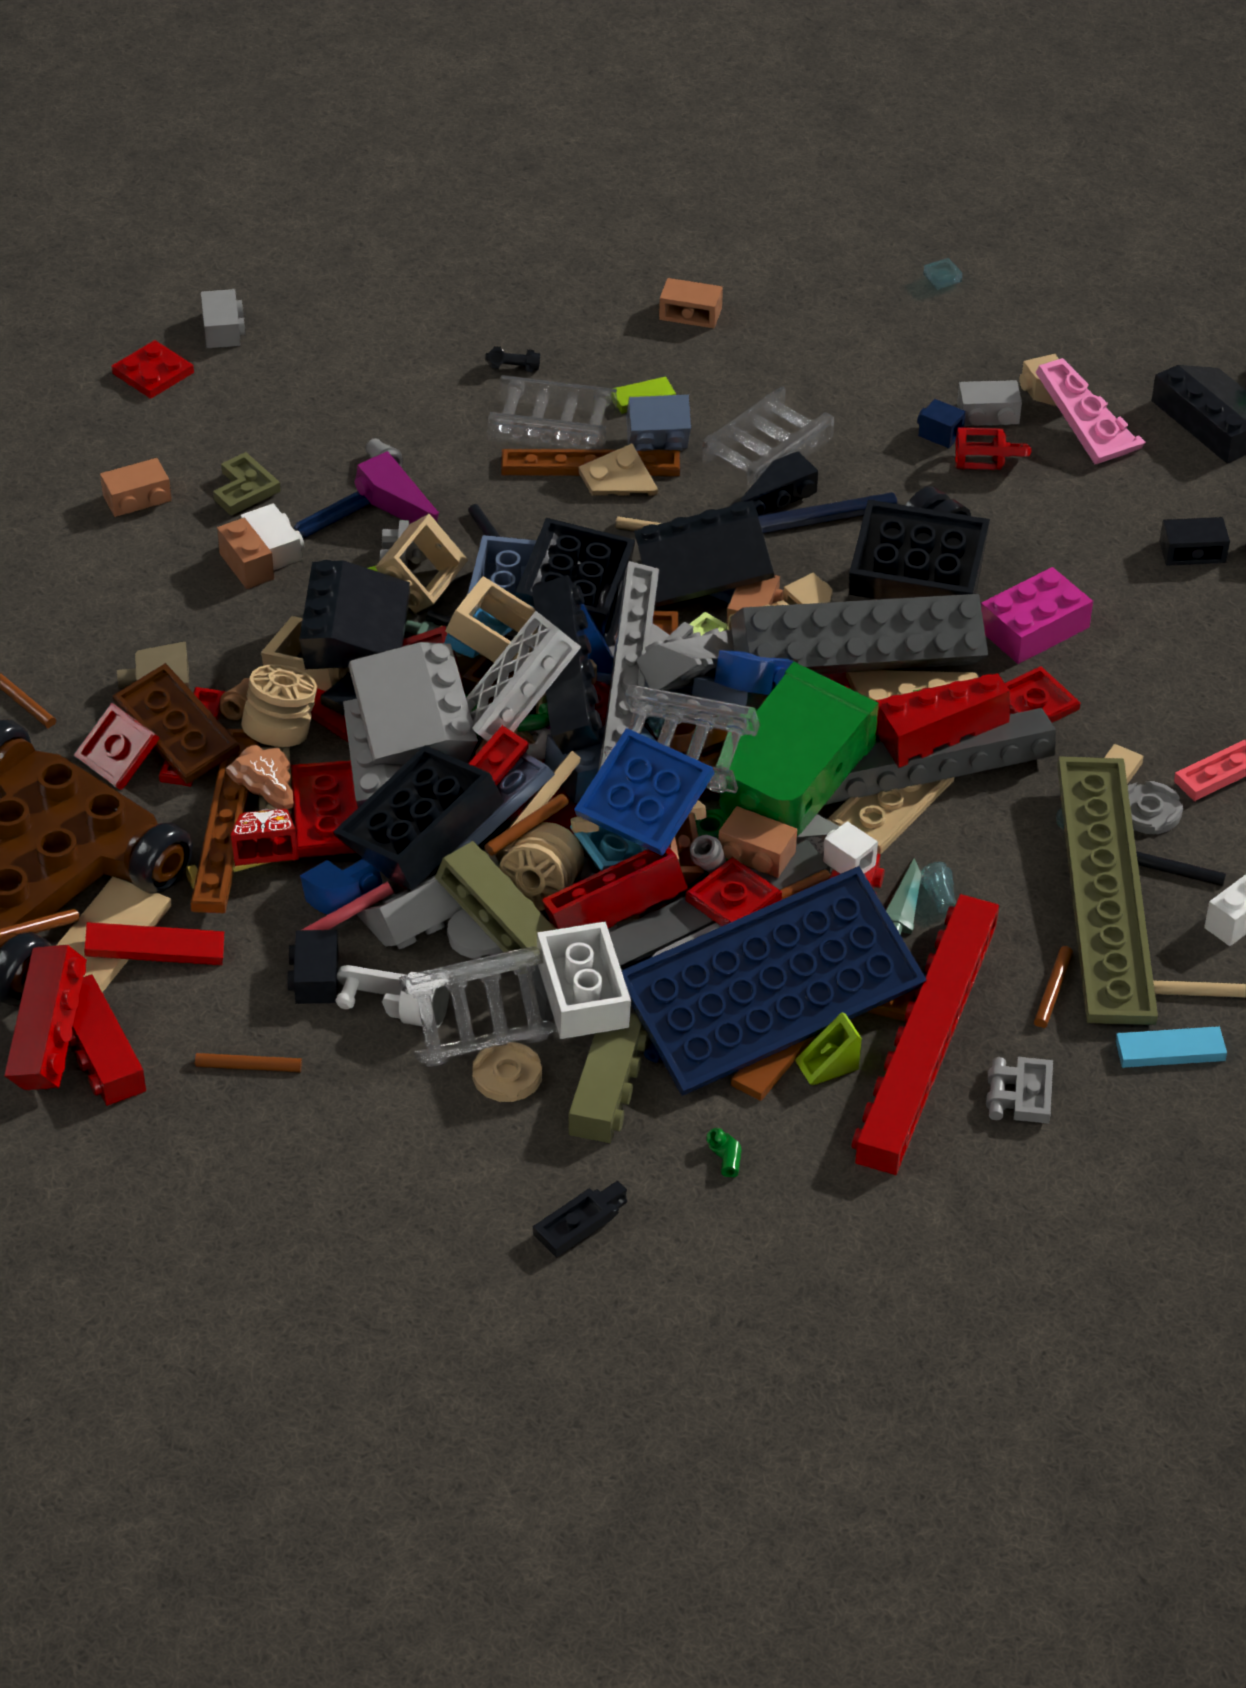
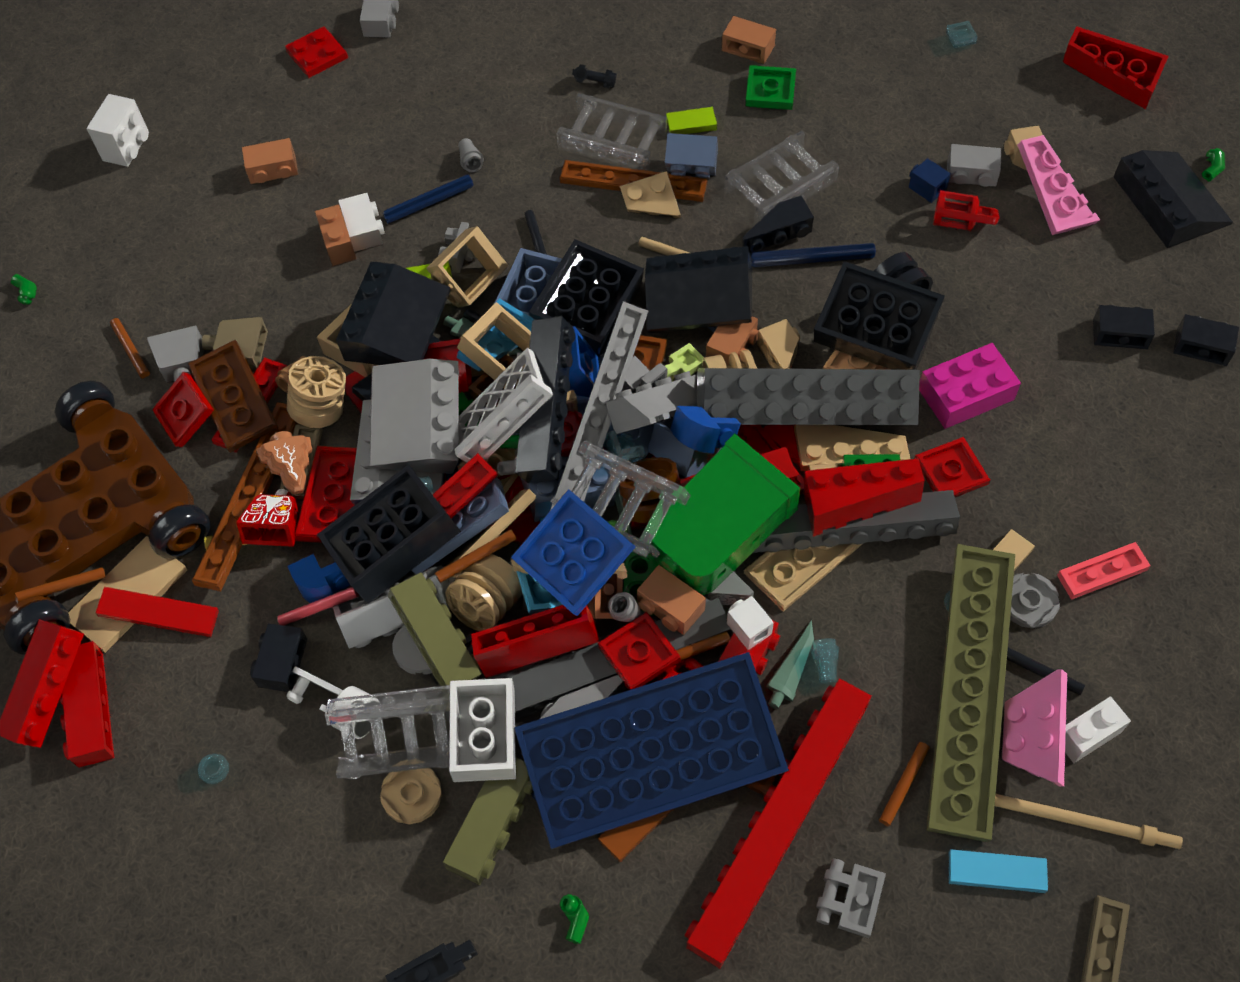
camera: 15 degrees right, 15 degrees up
(85, 692) = (176, 350): none -> light grey torso
(248, 486) = (359, 170): olive plate -> none
(248, 1062) = (202, 744): dark orange bar -> none
(270, 1079) = (213, 768): none -> clear light blue plate
(392, 489) = (463, 191): magenta slope -> none
(730, 349) = (770, 87): none -> green plate
(832, 1052) = (688, 829): lime slope -> none
(1128, 285) = (1116, 64): none -> red wedge
(1183, 910) = (1037, 728): none -> bright pink wing

